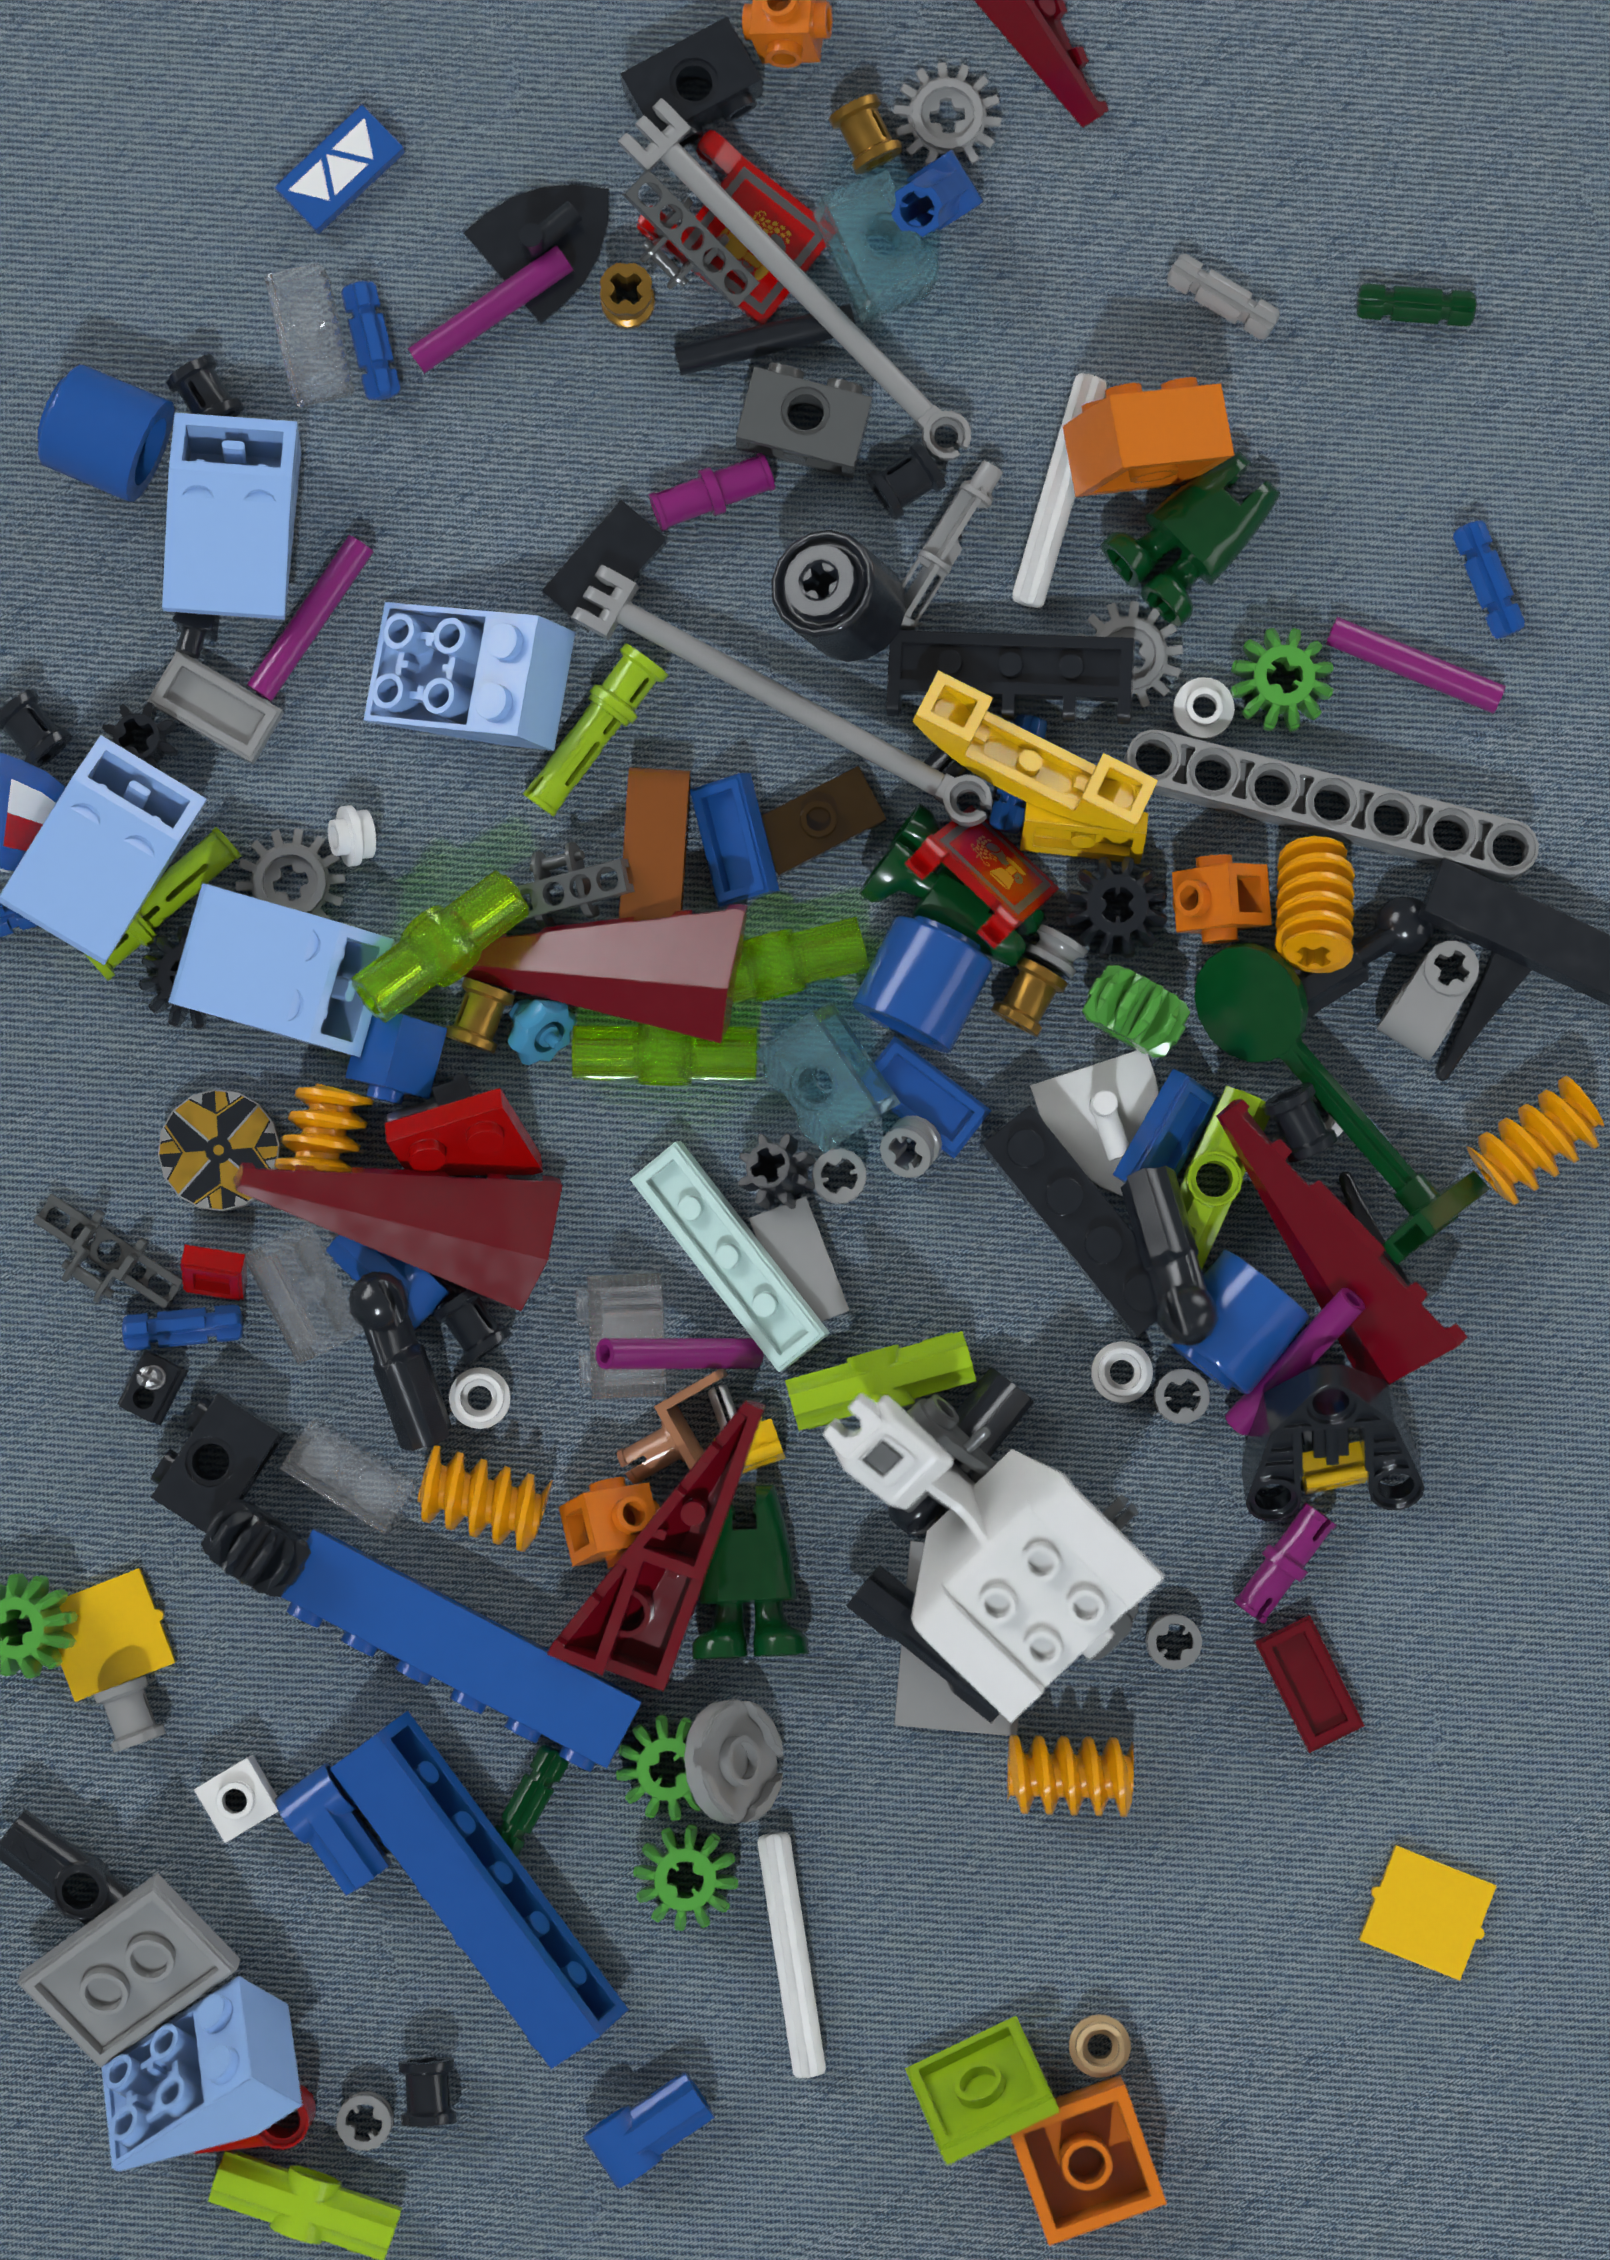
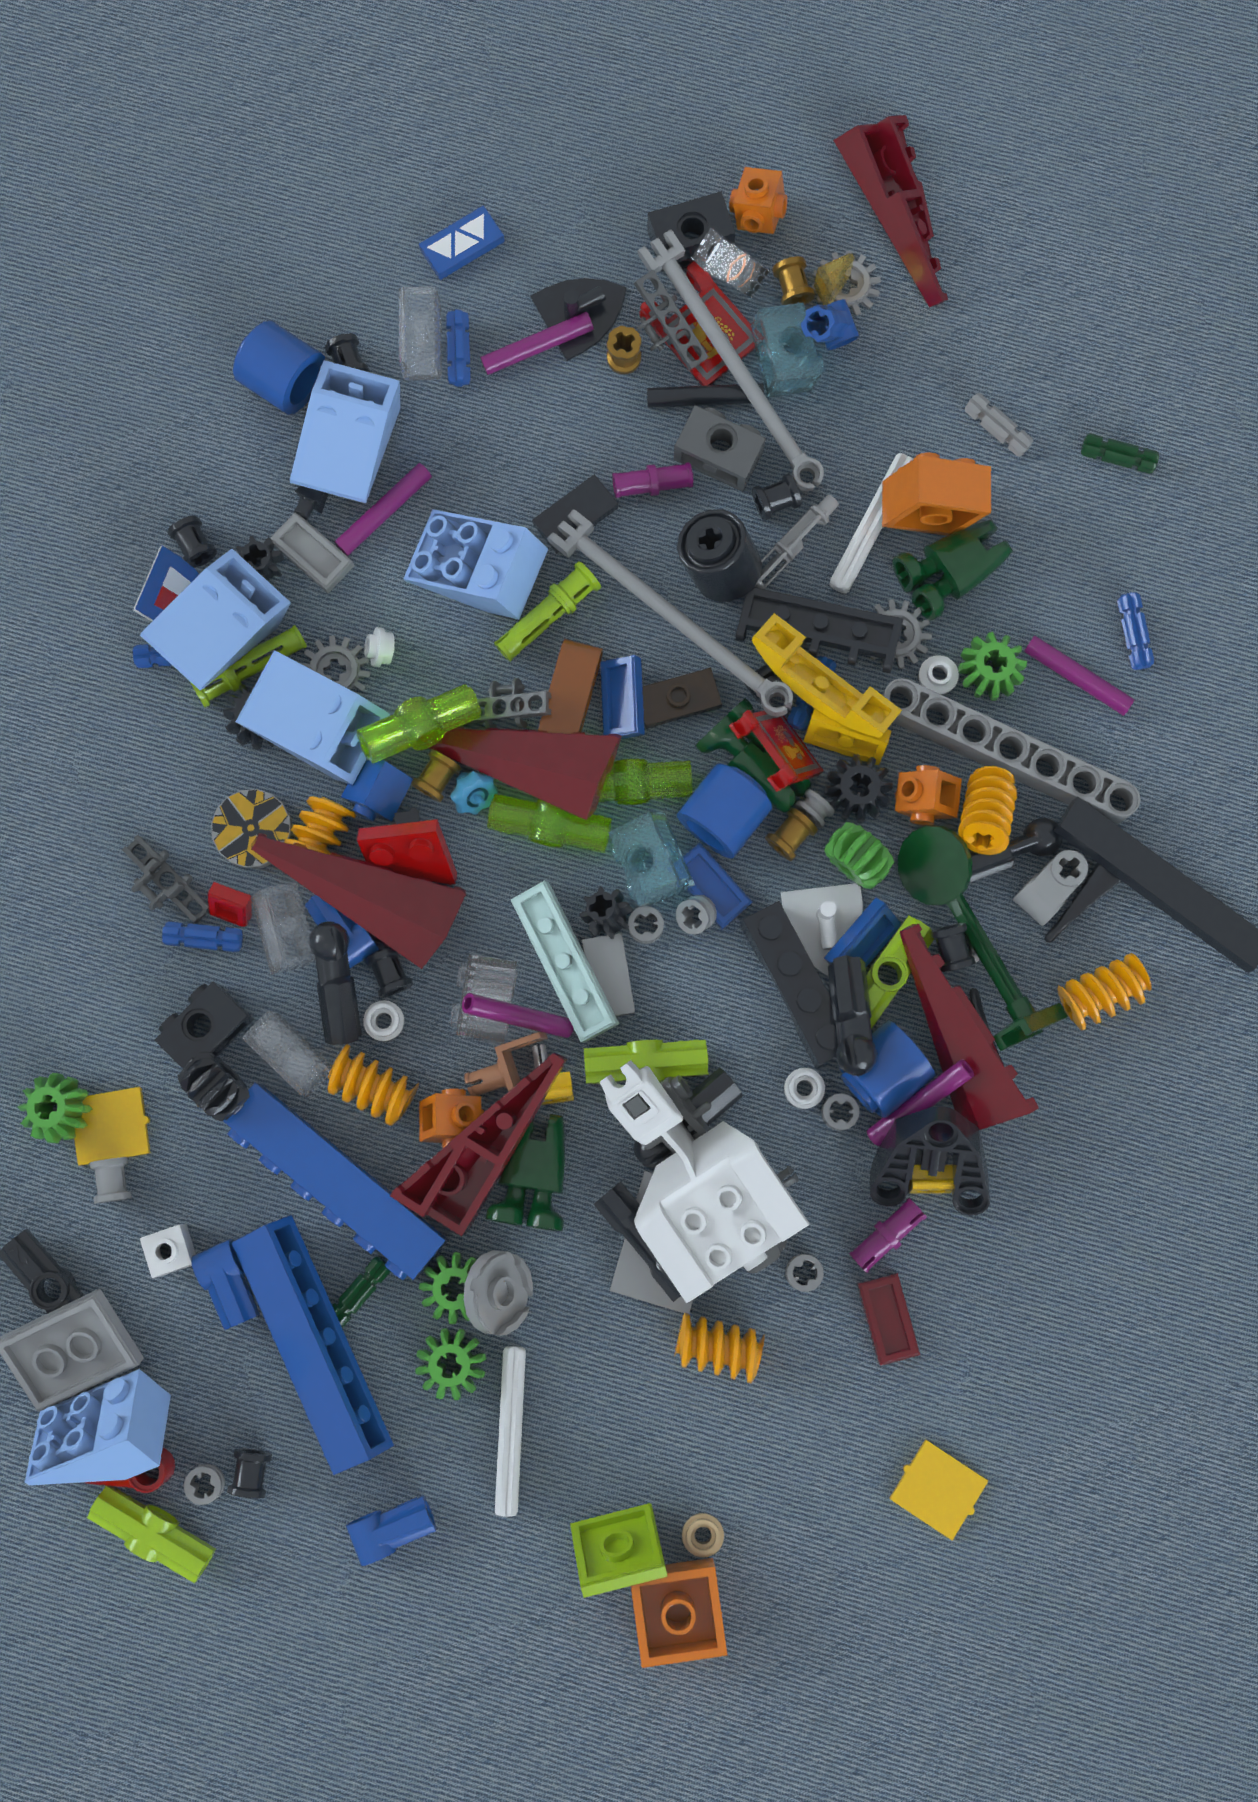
camera: 10 degrees right, 5 degrees down
(154, 1374) = (182, 968): black piece -> none
(763, 128) = (730, 263): none -> clear leg
(924, 120) = (832, 277): none -> clear yellow slope

